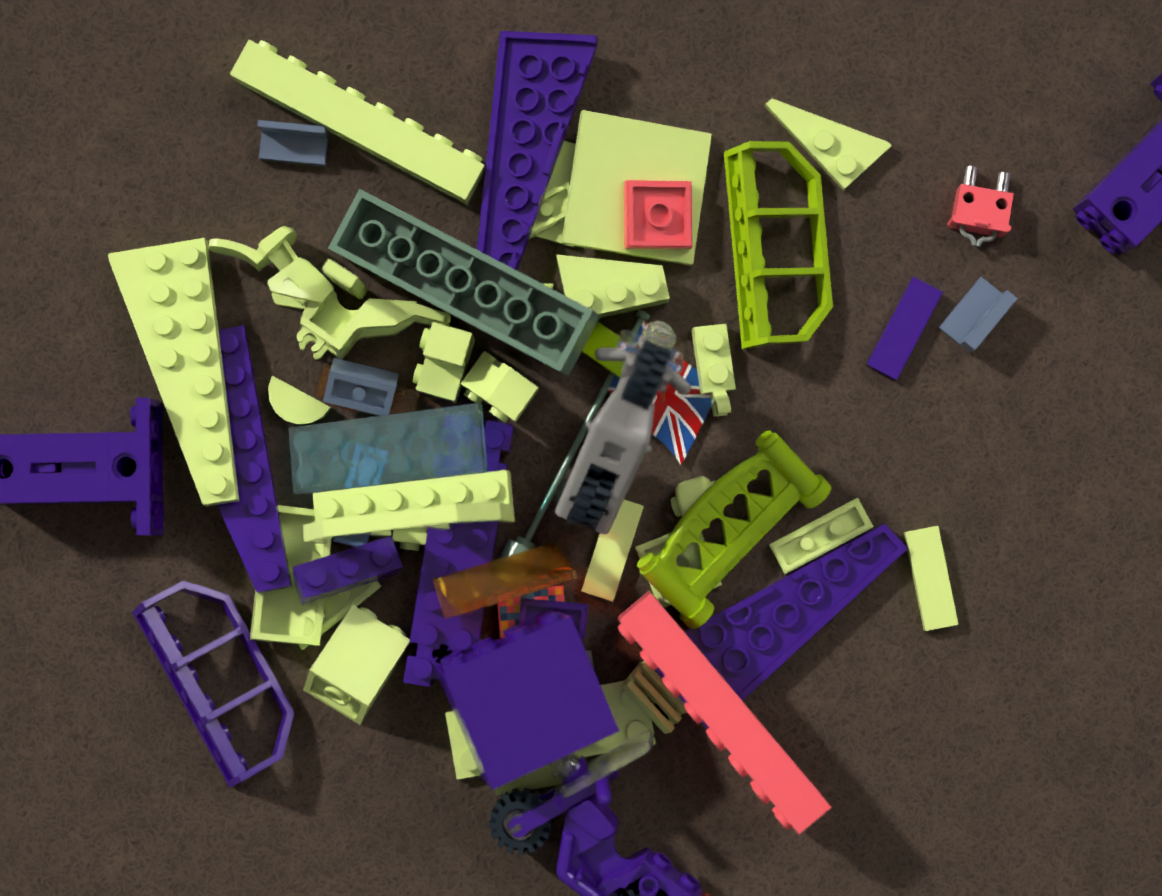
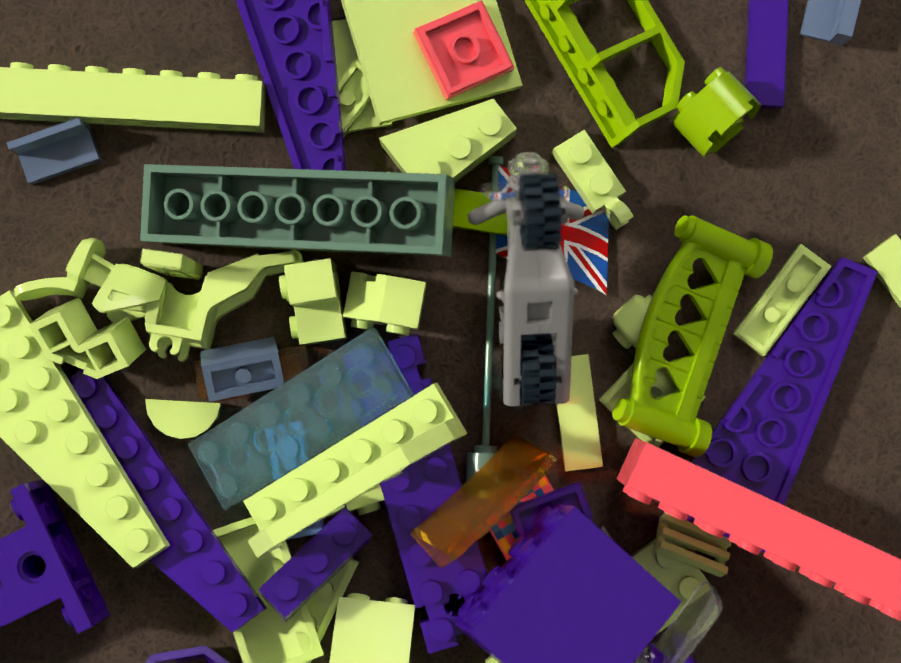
camera: 25 degrees left, 0 degrees up
(236, 298) = (71, 337): none -> yellowish green brick
(835, 359) = (715, 112): none -> lime brick

